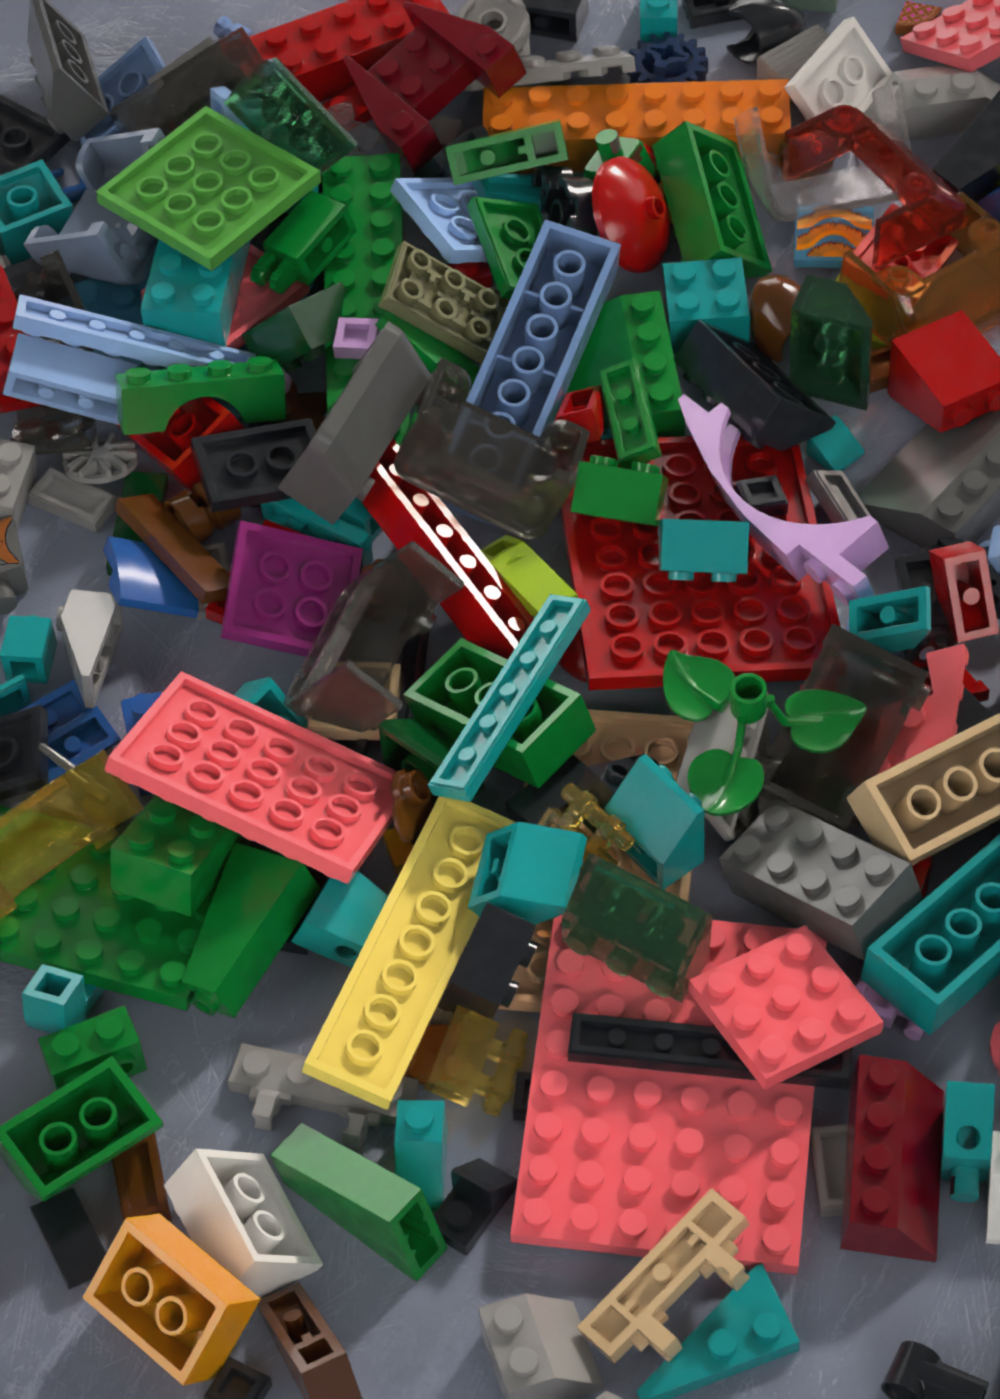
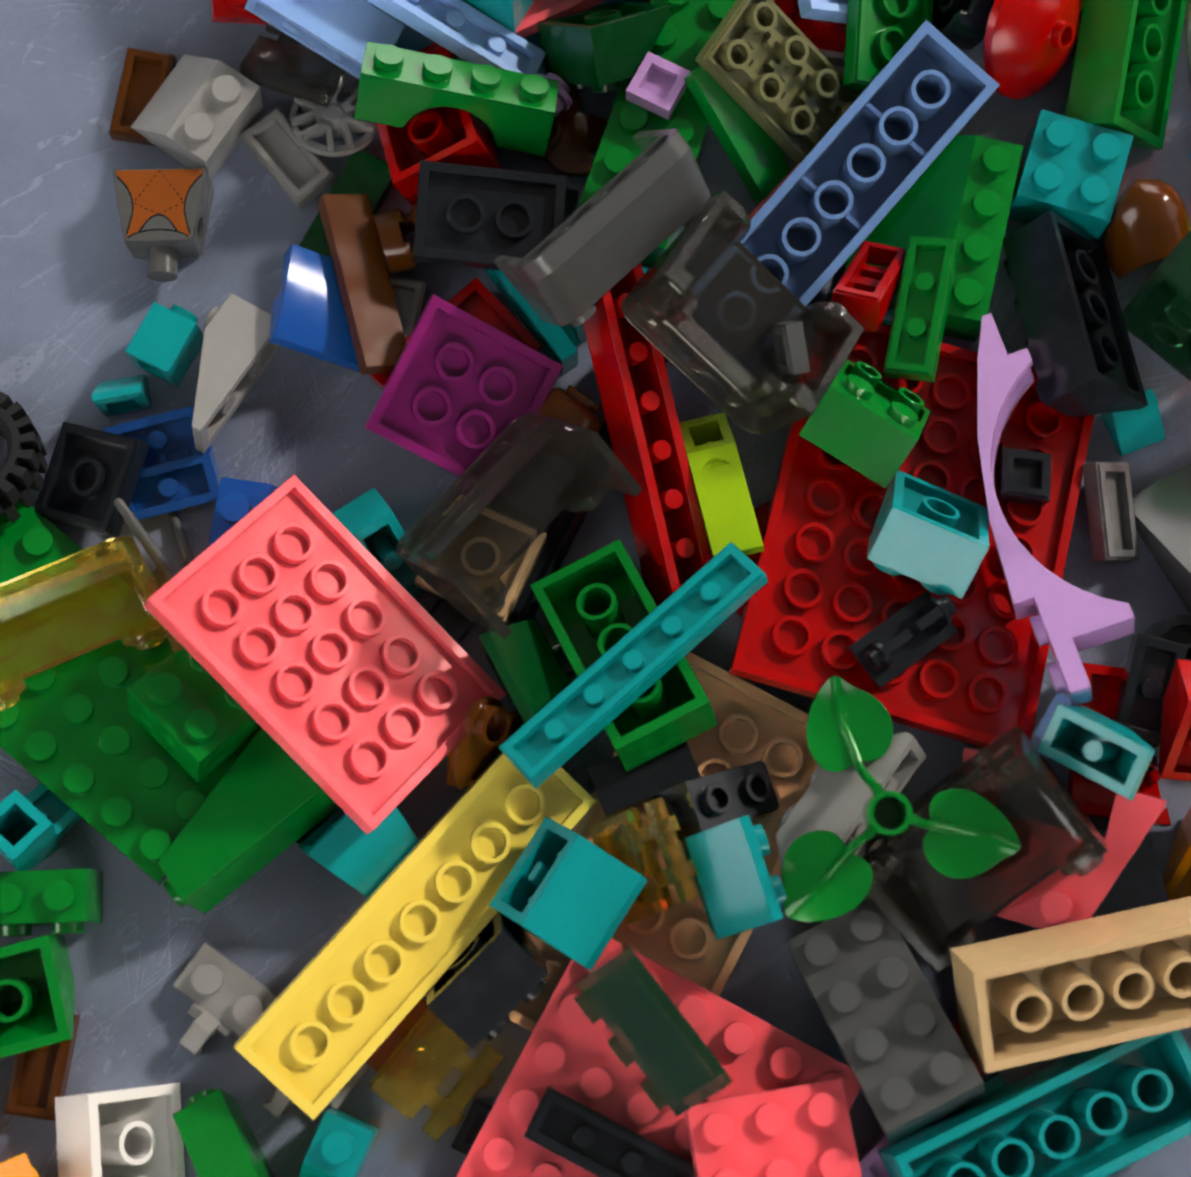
camera: 15 degrees right, 25 degrees up
(537, 456) = (790, 347): none -> dark grey tile
(717, 615) = (905, 637): none -> black hinge

